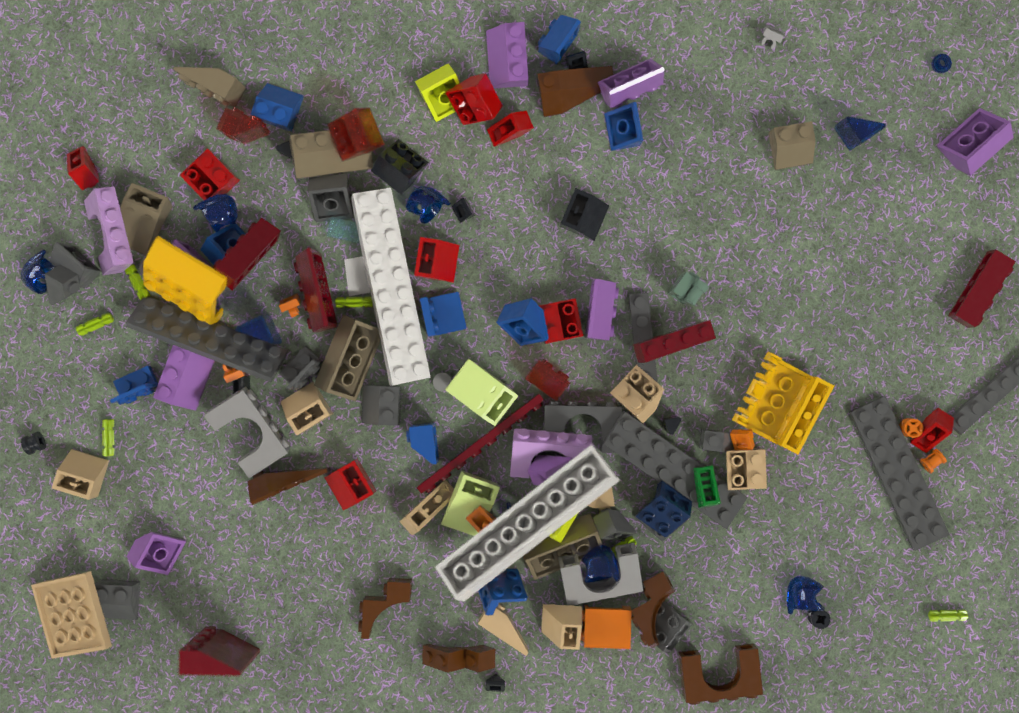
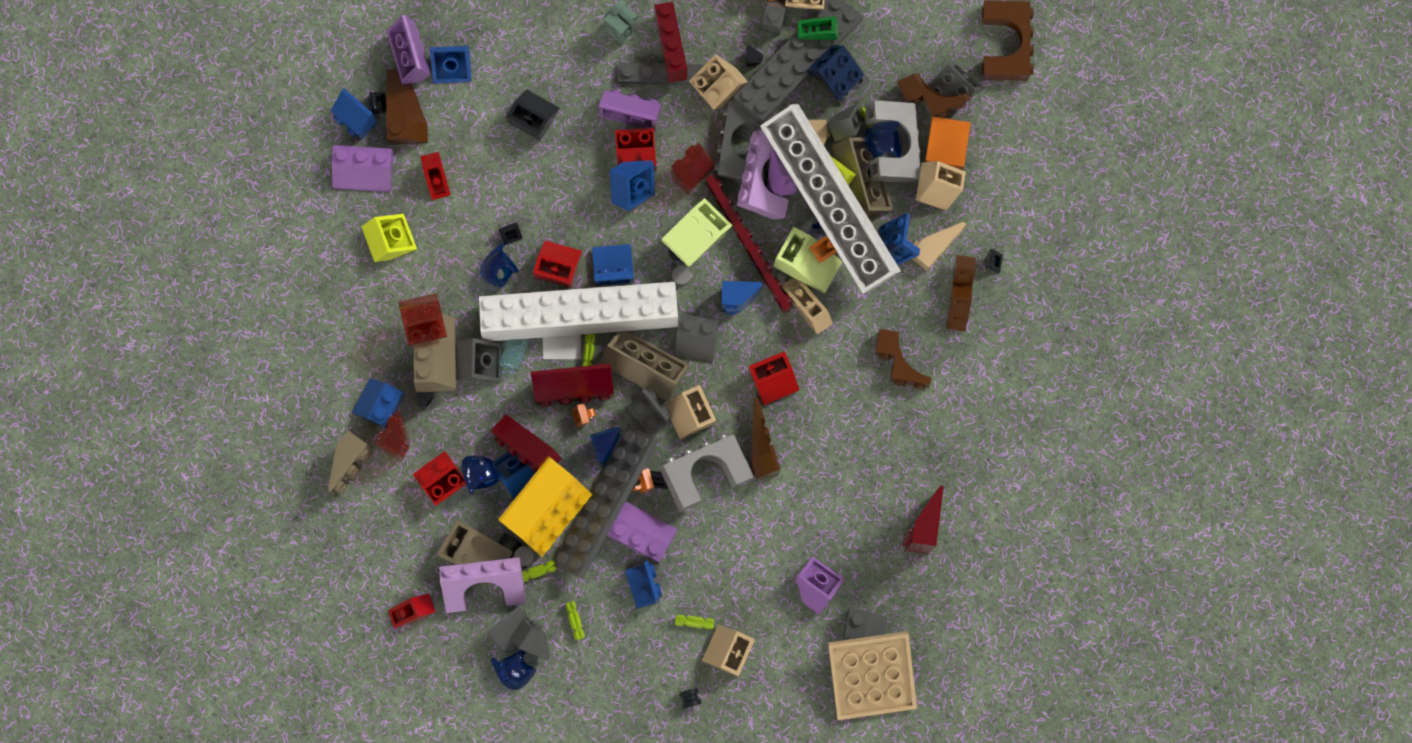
camera: 90 degrees left, 10 degrees down
(399, 166) = (457, 289): black slope -> none
(475, 99) = (403, 204): red slope -> none

